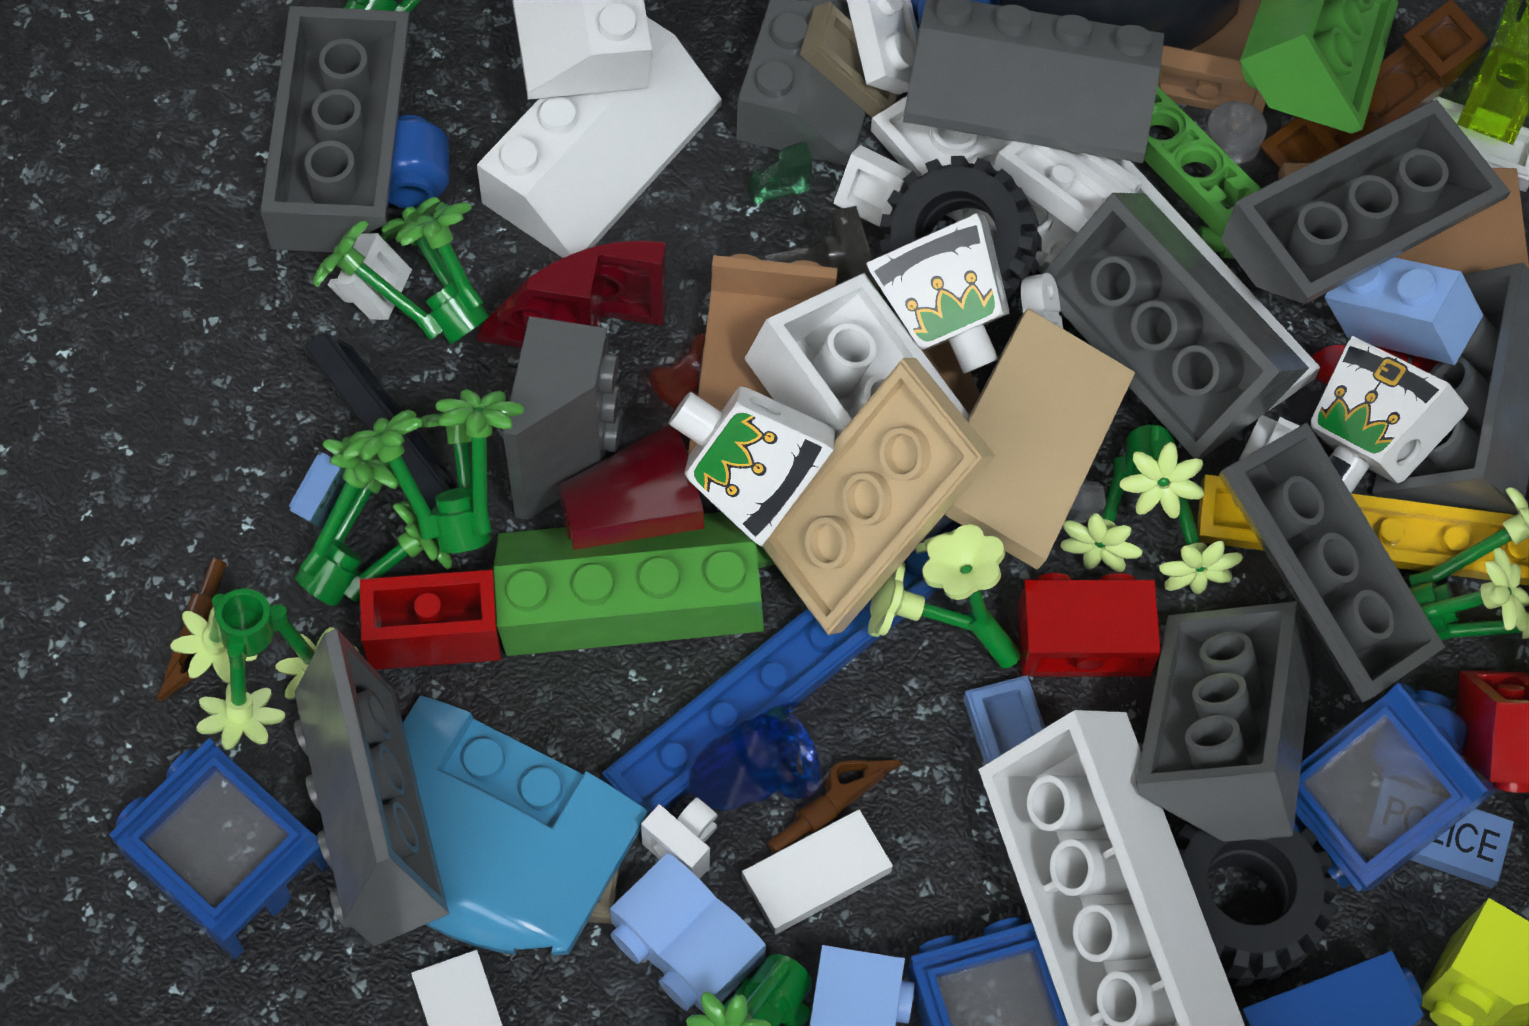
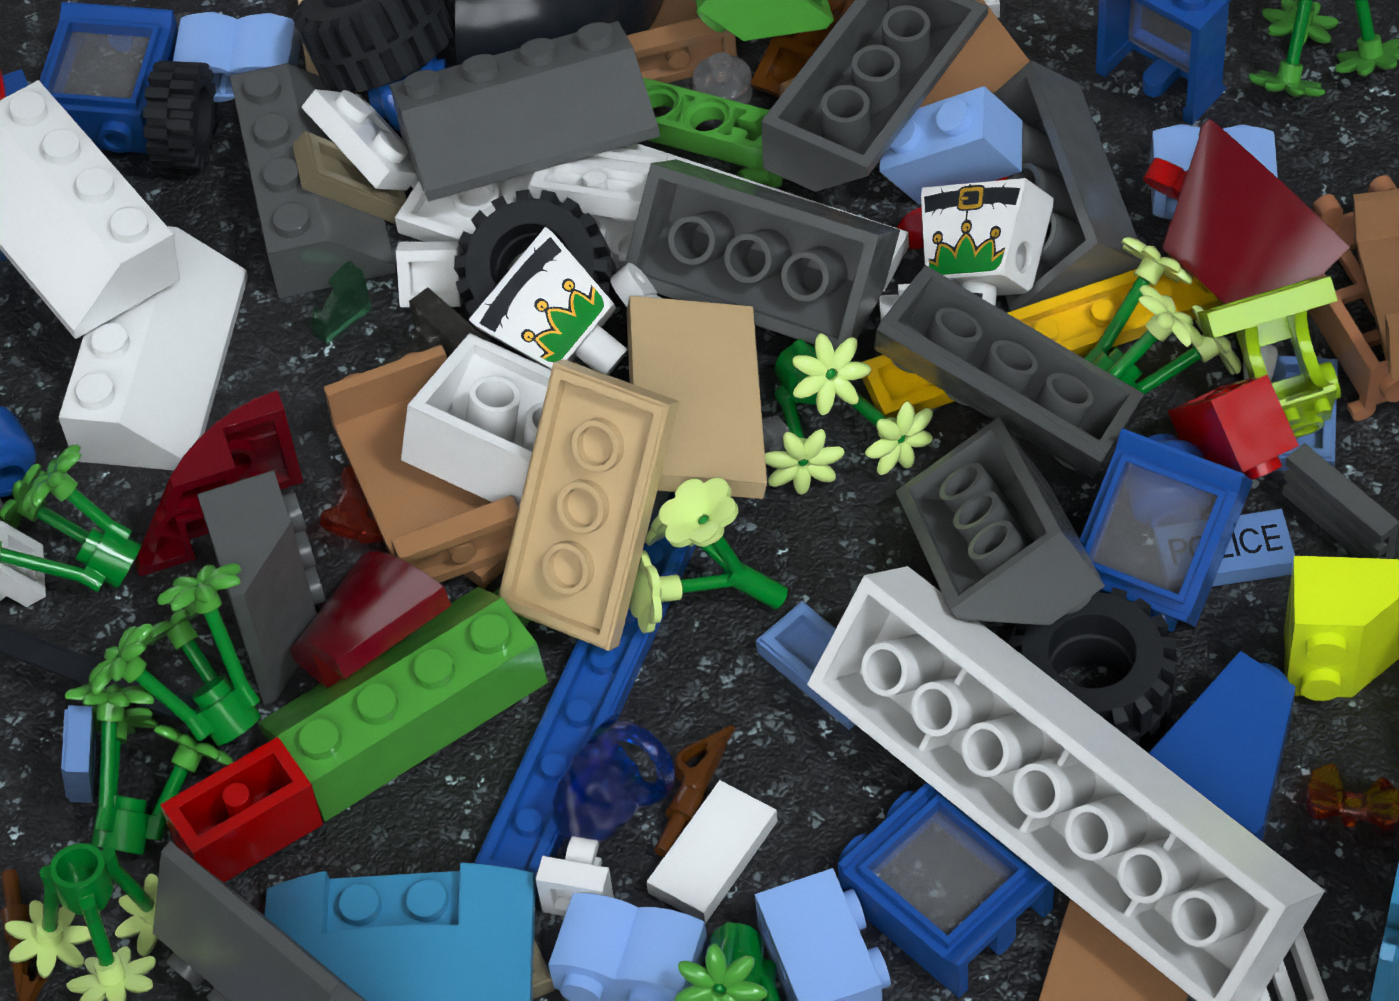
camera: 20 degrees left, 10 degrees down
(752, 456) = (460, 523): white torso -> none
(1088, 626) = (832, 534): red brick -> none

